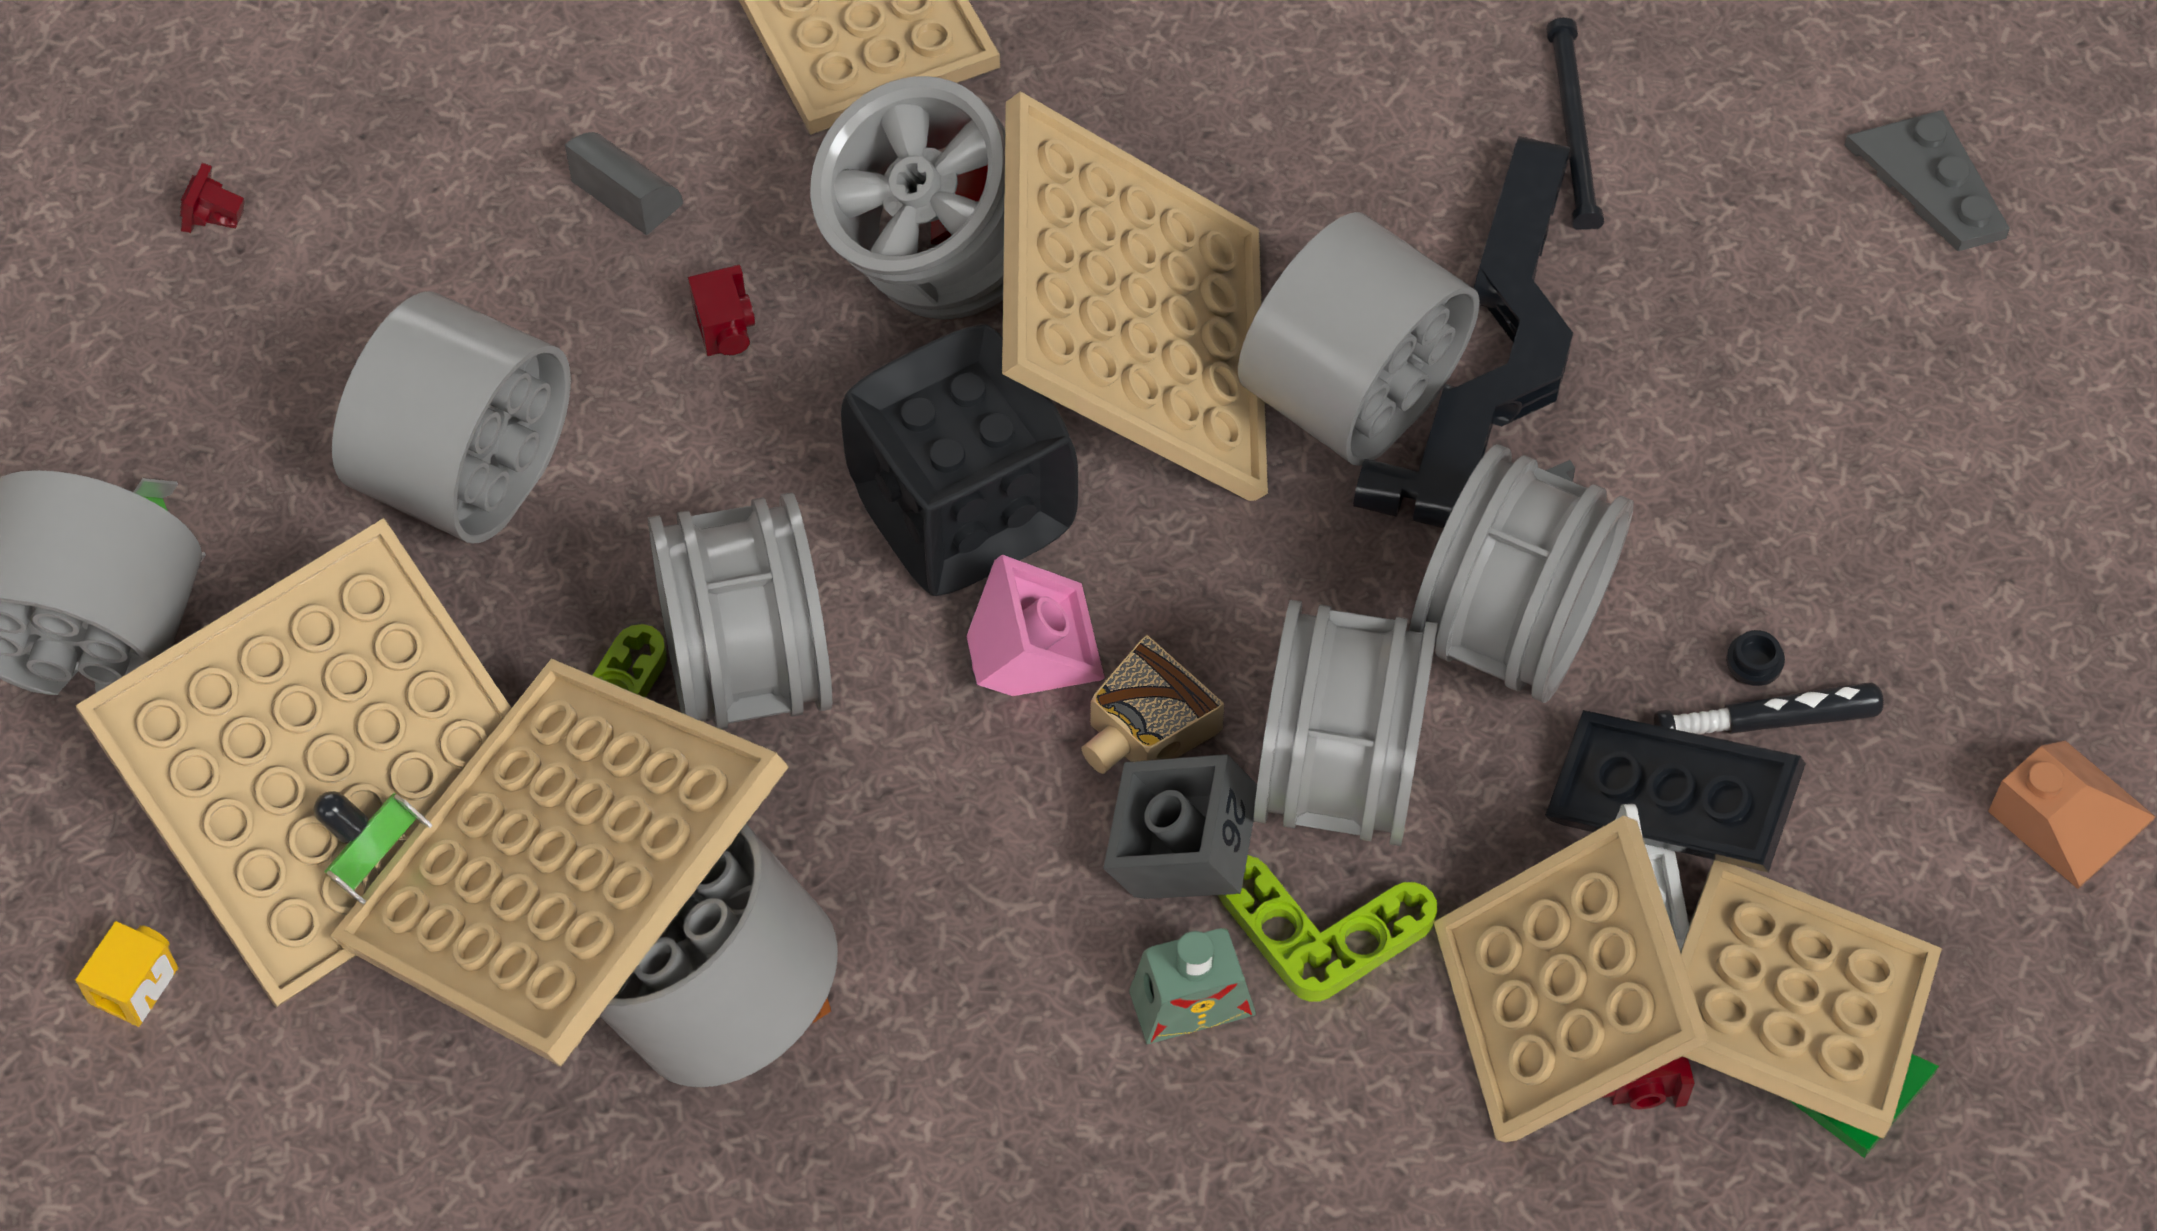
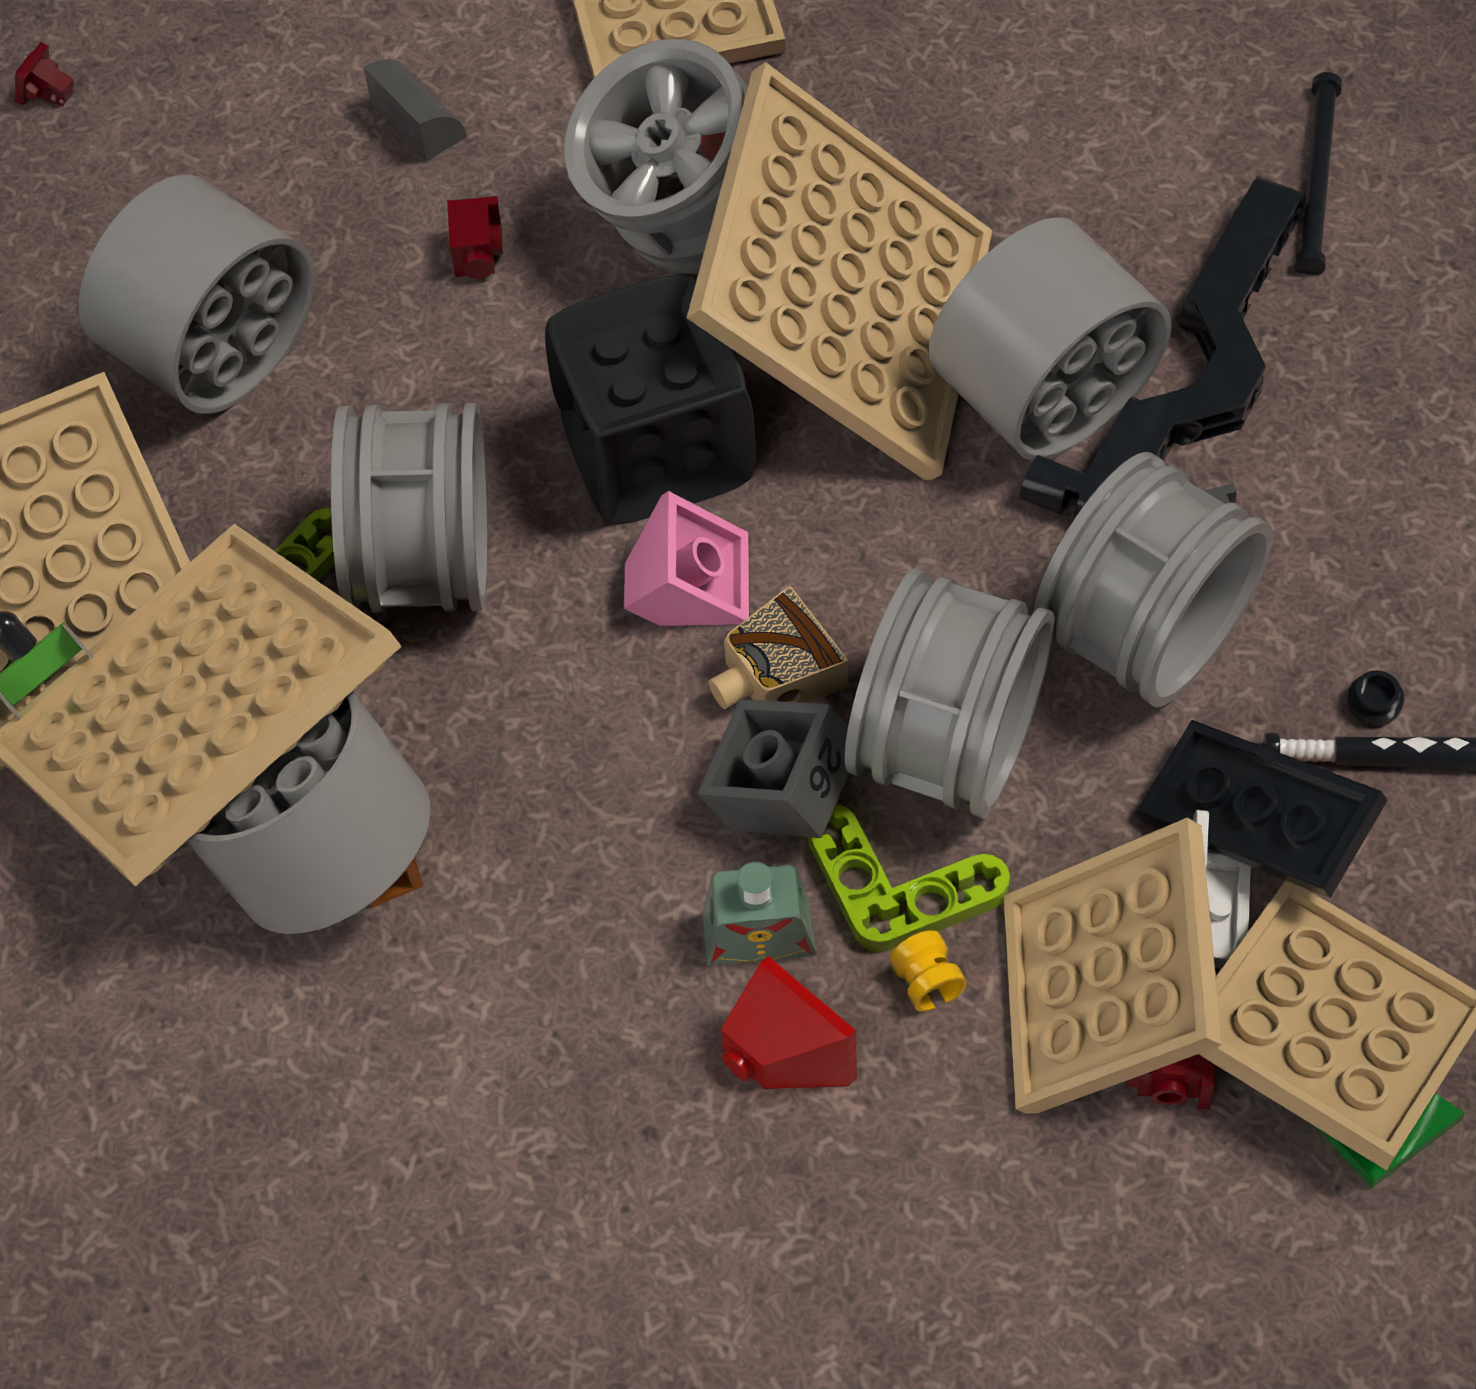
camera: 15 degrees right, 0 degrees up
(1255, 1104) = (787, 1035): none -> red slope
(1374, 1010) = (926, 967): none -> yellow wheel

